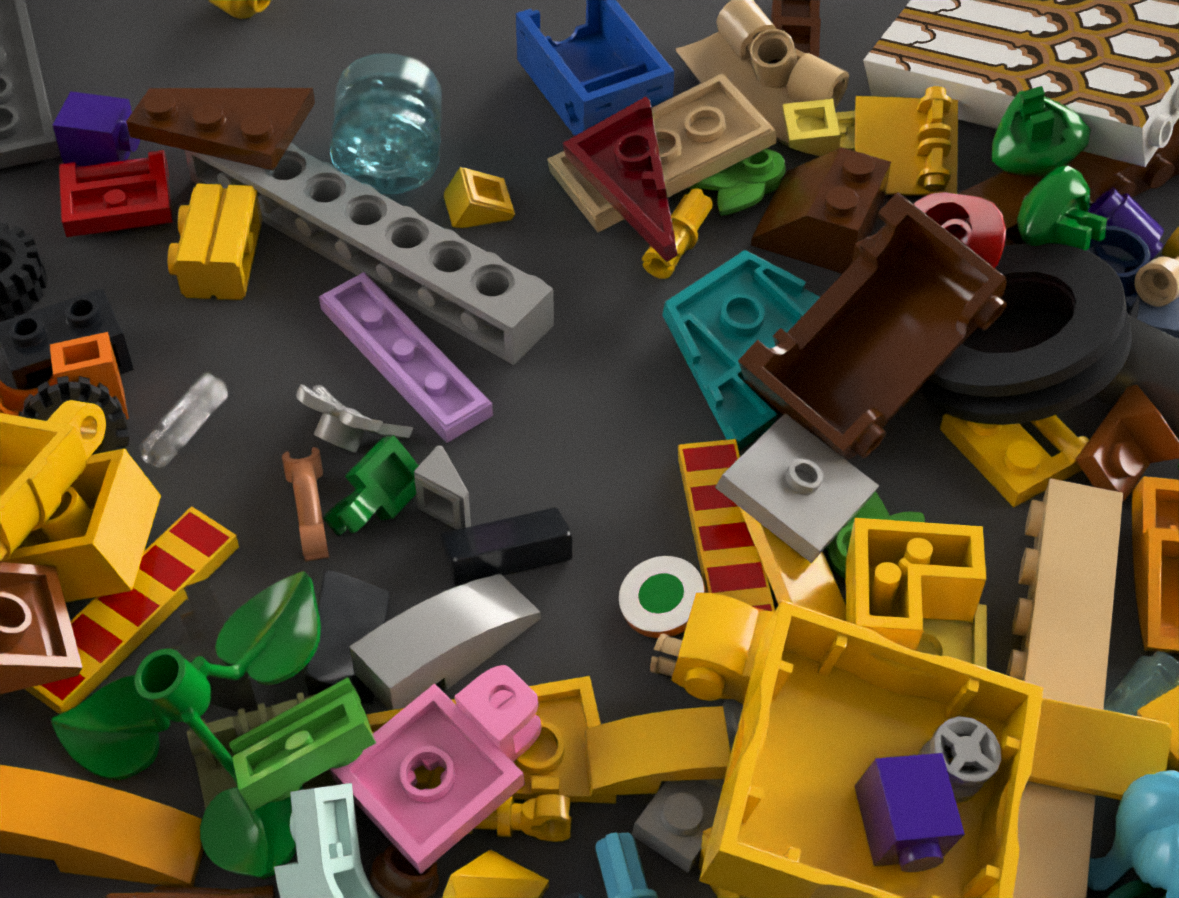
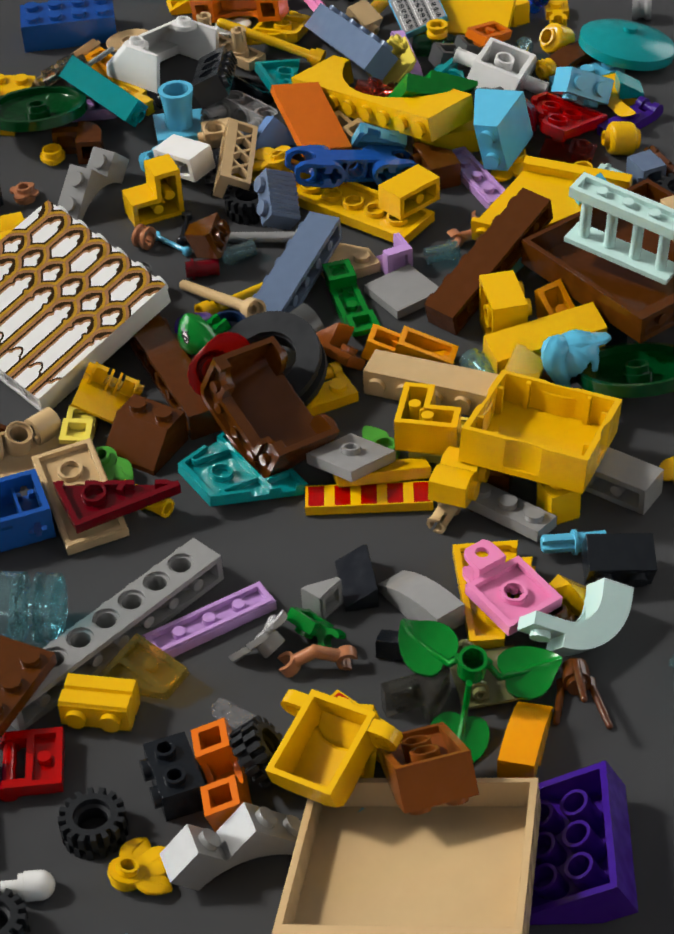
camera: 80 degrees left, 10 degrees down
(285, 284) = (153, 669): none -> clear yellow wing
(301, 744) = (497, 631): bright green plate -> none
(477, 199) = (87, 588): yellow slope -> none
(657, 747) = (503, 517): yellow slope -> none
(660, 595) = (405, 518): white piece -> none
(909, 811) = (556, 421): dark purple brick -> none
(973, 751) = (528, 407): light grey wheel -> none
(1038, 135) = (144, 329): green piece -> none

